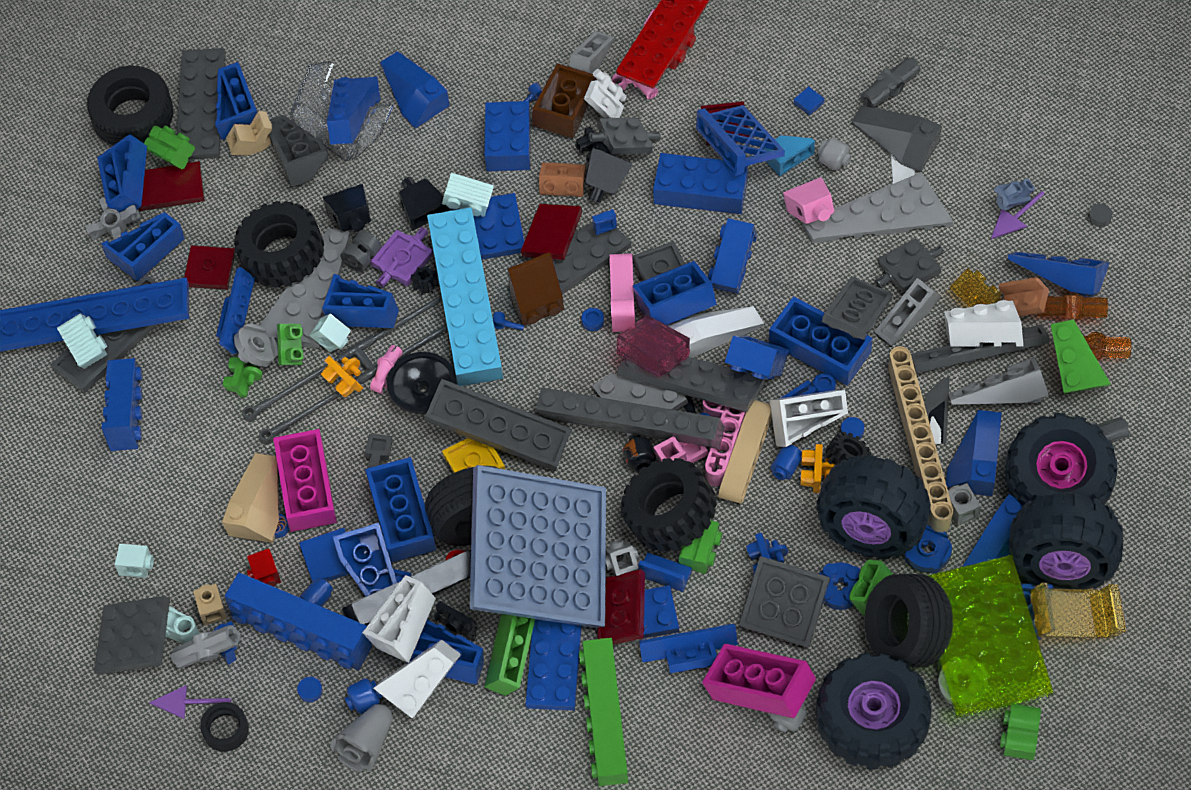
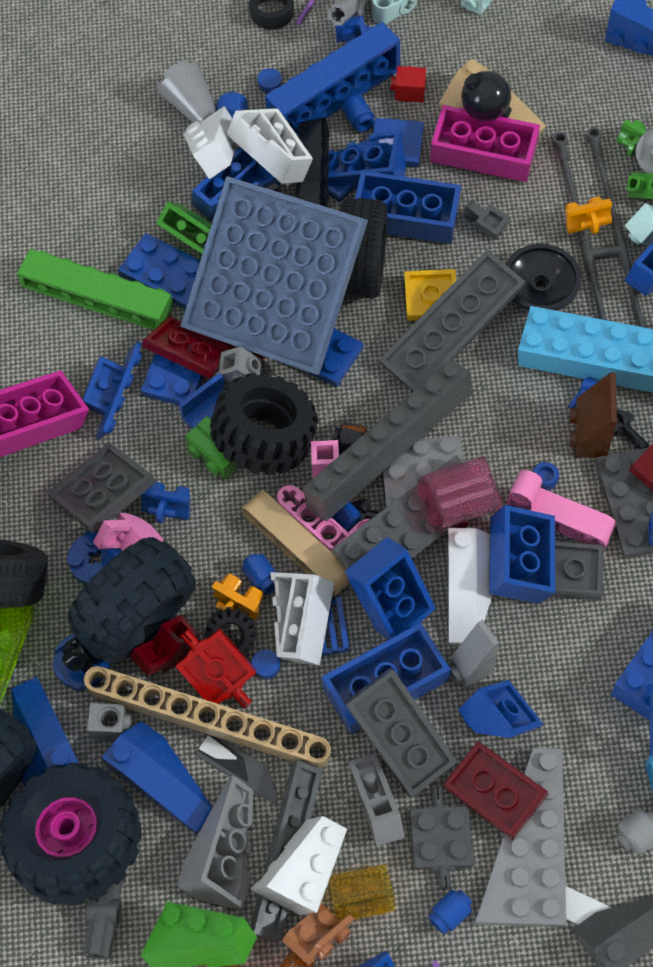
camera: 115 degrees right, 5 degrees up
(209, 604) = (404, 29): tan brick -> none
(267, 482) = (486, 96): none -> black brick
(384, 366) = (582, 258): bright pink piece -> none
(732, 255) = (549, 644): blue wedge -> none
(772, 287) = (474, 656): none -> light grey slope
(801, 265) = (499, 711): none -> blue slope
(809, 201) = (579, 767): bright pink torso -> none
(813, 556) = (123, 532): none -> bright pink brick
(824, 382) = (334, 660): blue tile -> none
(857, 246) = (495, 790): none -> dark red tile
(870, 575) = (65, 575): bright green brick -> none
(880, 443) = (216, 667): none -> red plate
(931, 539) = (77, 656): none -> black gear
(956, 237) = (450, 911): none -> blue brick

